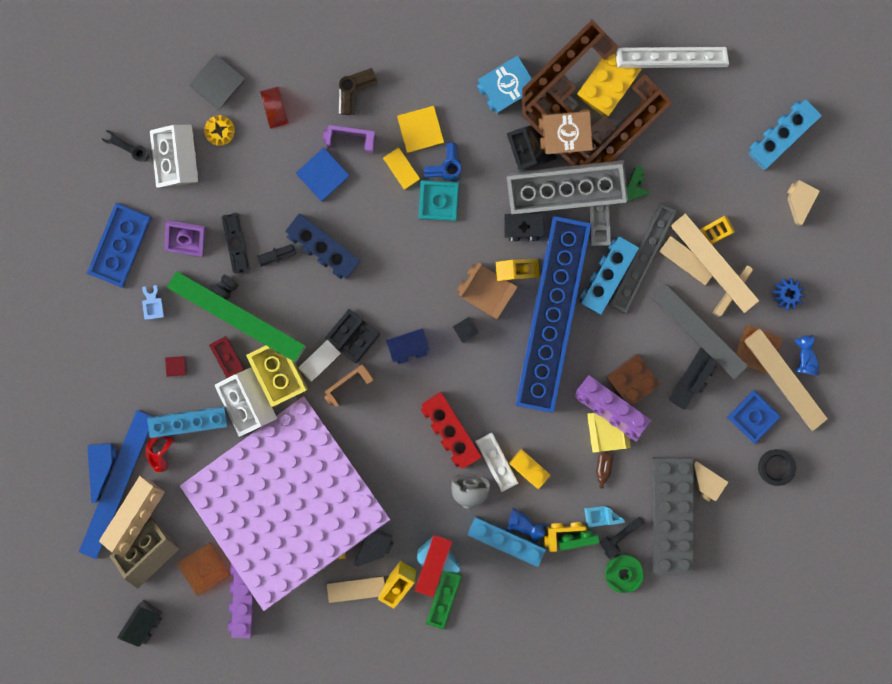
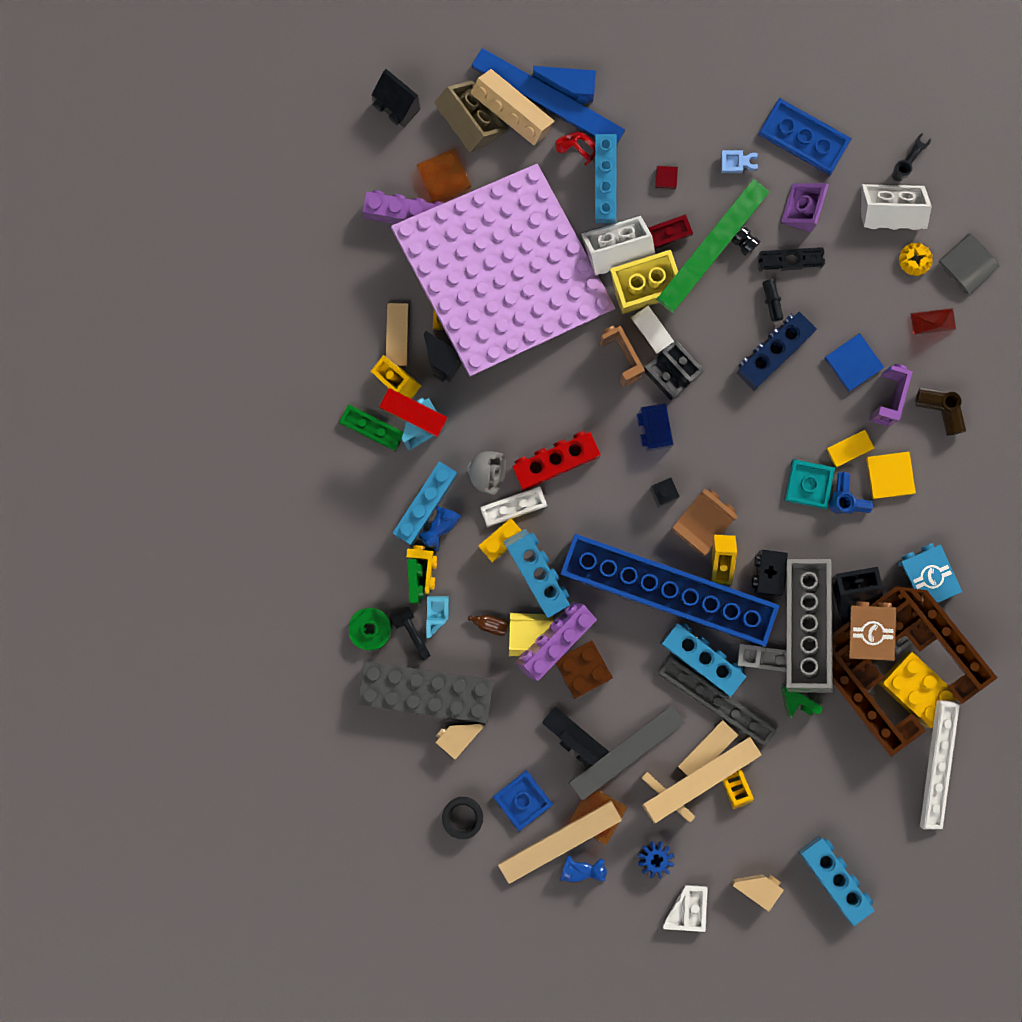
camera: 100 degrees right, 5 degrees down
(578, 417) = (551, 602): none -> dark azure brick
(827, 259) = (688, 910): none -> white wing

